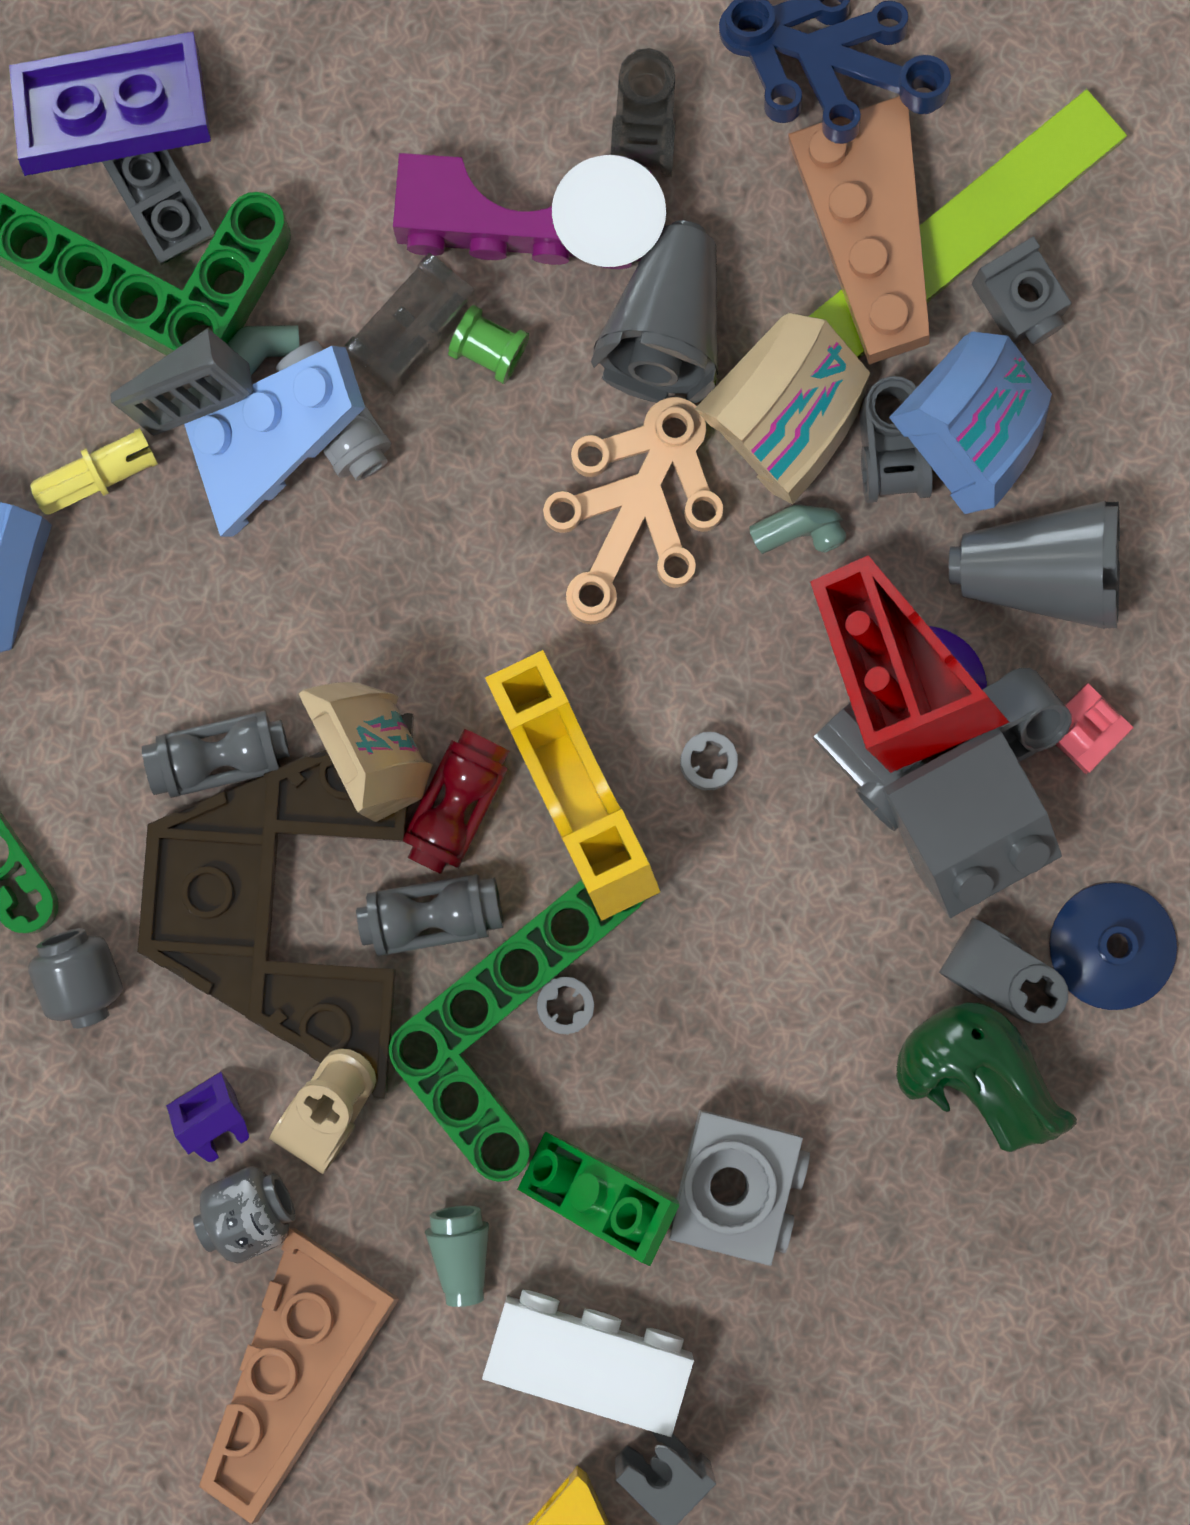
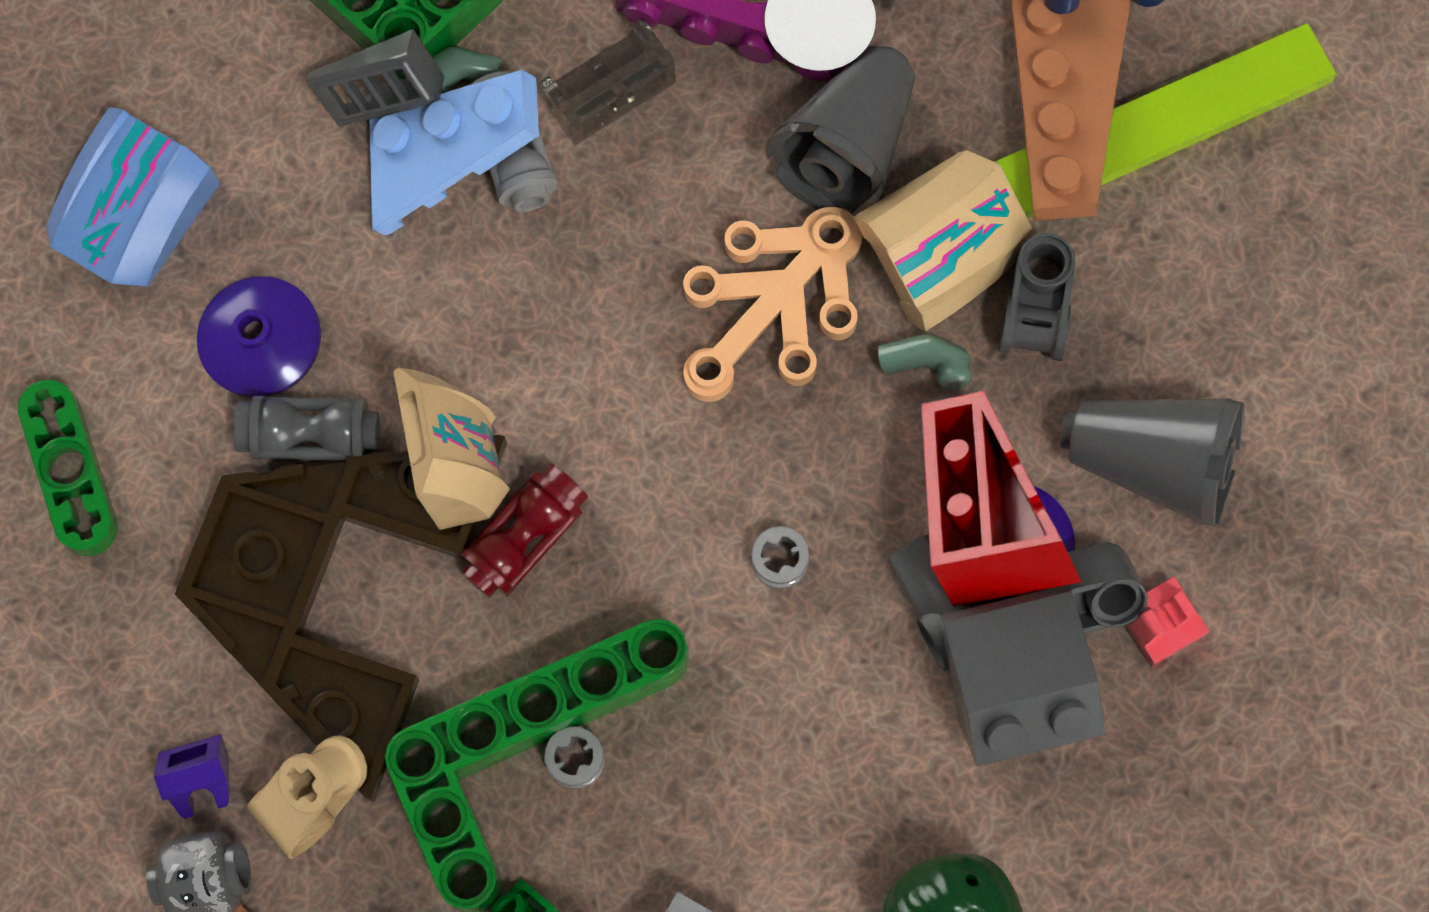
camera: 20 degrees right, 10 degrees down
(75, 978) = (108, 604): dark grey head -> none
(92, 473) = (270, 143): light yellow axle -> none
(168, 680) = (277, 355): none -> dark purple dish
(463, 909) = (500, 634): dark grey piece -> none
(488, 344) = (675, 116): bright green bush -> none
(572, 785) = (636, 538): yellow arch -> none
(977, 418) = (1125, 294): medium blue slope -> none
(997, 967) = (1010, 831): dark grey piece -> none
(998, 289) = (1189, 213): dark grey brick -> none
(1081, 950) = (1114, 868): dark blue dish -> none

